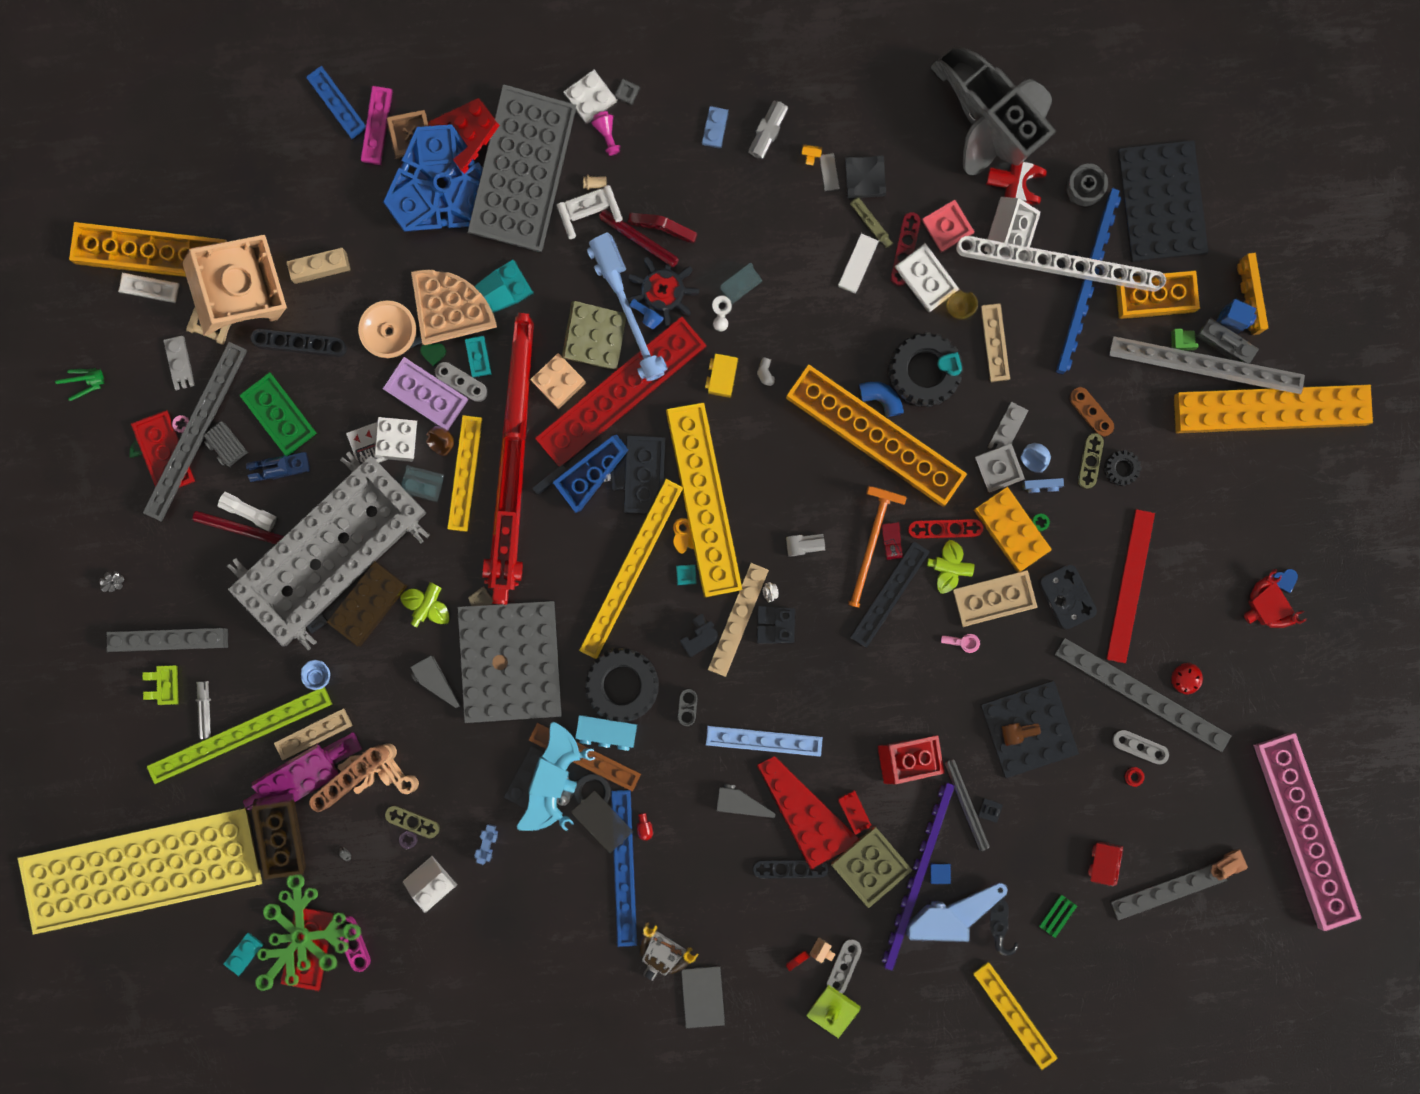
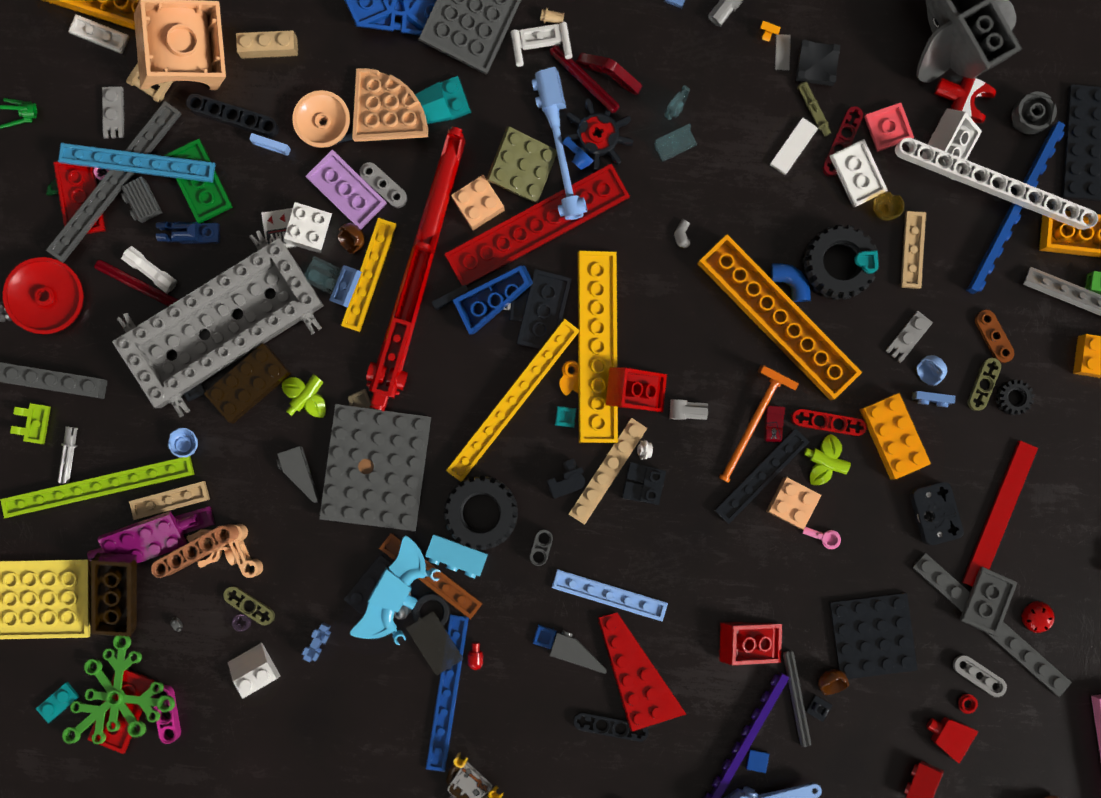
camera: 10 degrees right, 0 degrees up
(148, 558) = (43, 295): none -> red dish
(214, 408) = (136, 162): none -> dark azure tile
(341, 364) = (270, 144): none -> light blue tile
(433, 353) = (361, 151): dark green tile -> none
(444, 489) = (345, 286): none -> medium blue plate
(478, 356) = (404, 163): teal plate -> none
(708, 794) = (544, 636): none -> blue tile
(720, 322) = (648, 177): white plate -> none
(722, 375) = (639, 229): yellow brick -> none
(734, 246) = (676, 105): none -> clear light blue plate
(750, 534) = (636, 389): none -> red slope
(854, 812) = (684, 683): red hinge -> none
(871, 866) = (691, 741): olive plate -> none
(926, 614) = (793, 503): none -> light nougat brick
(995, 598) = (864, 500): tan plate -> none
(998, 781) = (830, 682): none -> reddish brown hair
(999, 467) = (894, 373): light grey plate -> none
(1016, 733) = (859, 638): reddish brown axle -> none
(1043, 517) = (926, 430): green bush -> none
(1124, 812) = (952, 737): none -> red torso
(1134, 672) = (988, 601): none -> dark grey tile

